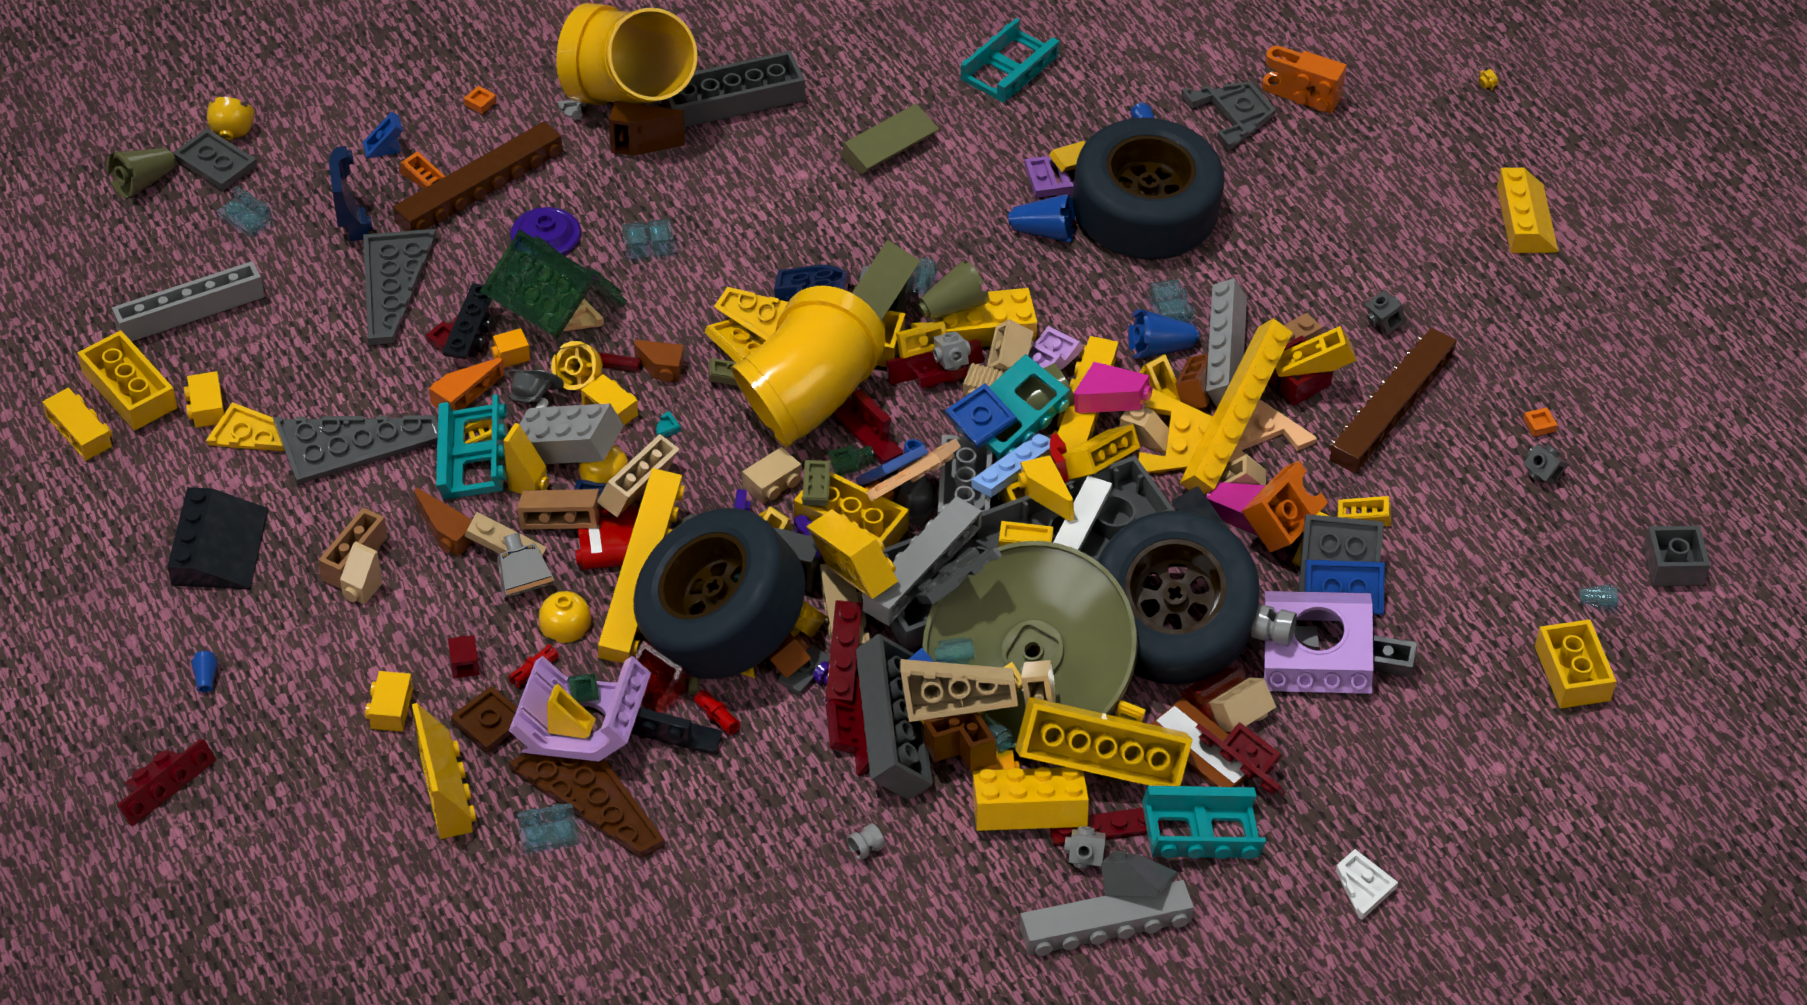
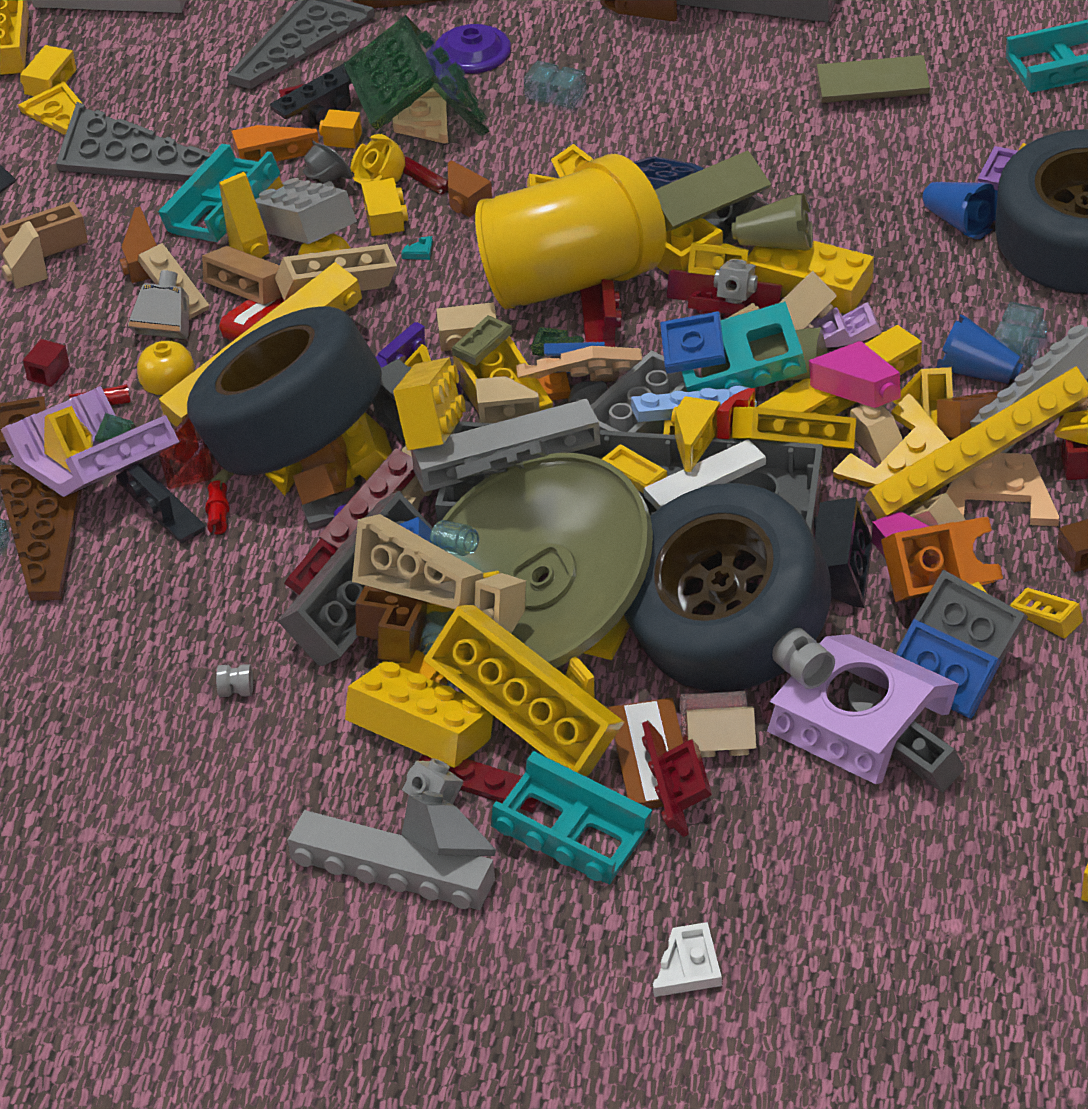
camera: 40 degrees right, 5 degrees down
(885, 521) = (504, 399): none -> tan slope

